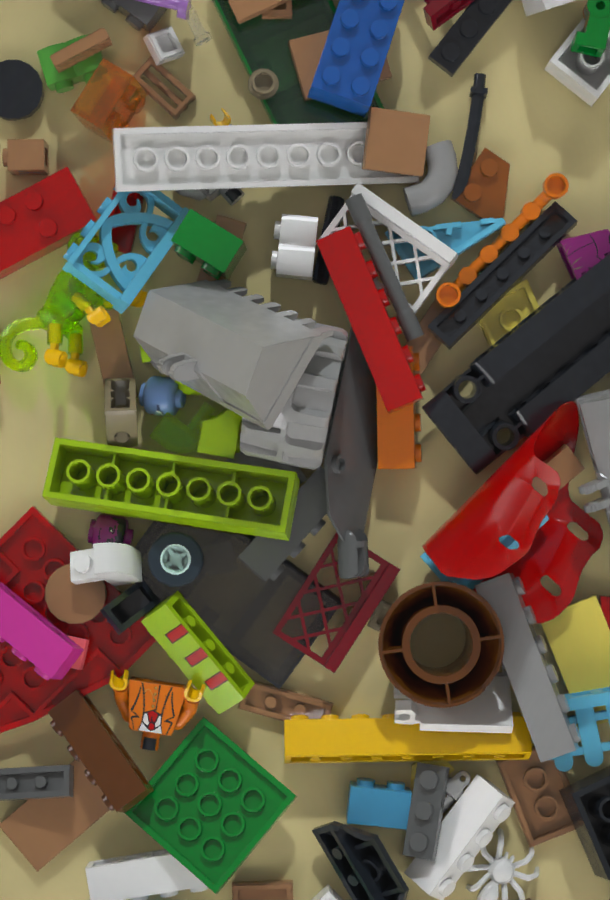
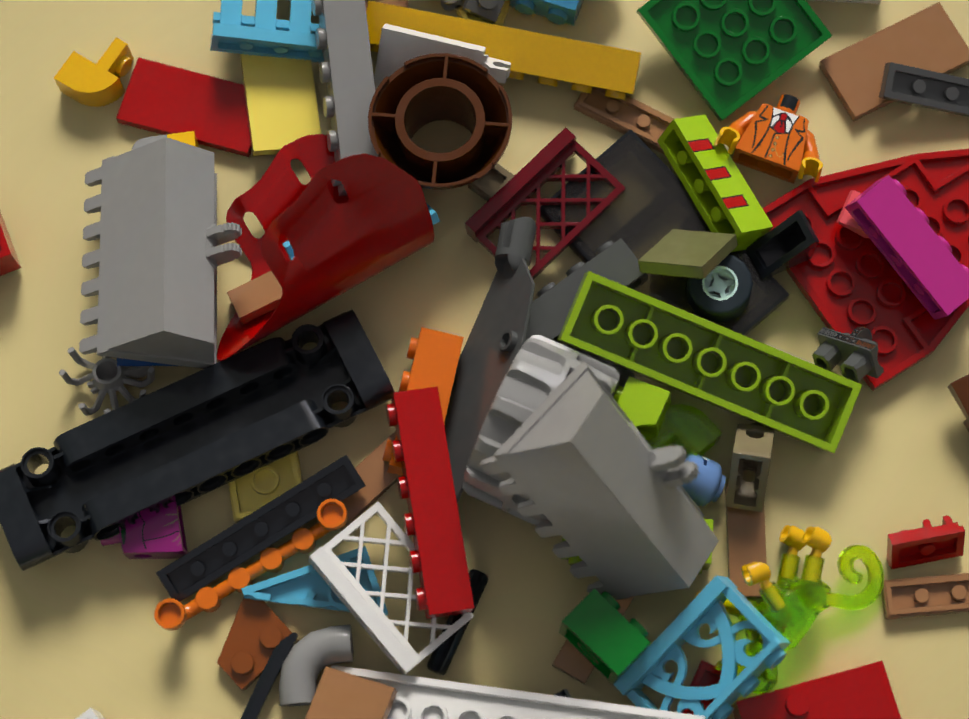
camera: 160 degrees left, 15 degrees down
(57, 530) = (852, 352): none -> dark grey hips
(74, 602) = (842, 277): medium nougat tile -> none
(100, 752) = (846, 102): reddish brown brick -> none
(106, 561) = (801, 296): white brick -> none
(110, 529) = (790, 335): magenta head -> none
(207, 577) = (687, 253): none -> olive tile
(296, 246) = (498, 620): white brick -> none
(404, 313) = (410, 622): dark grey piece -> none

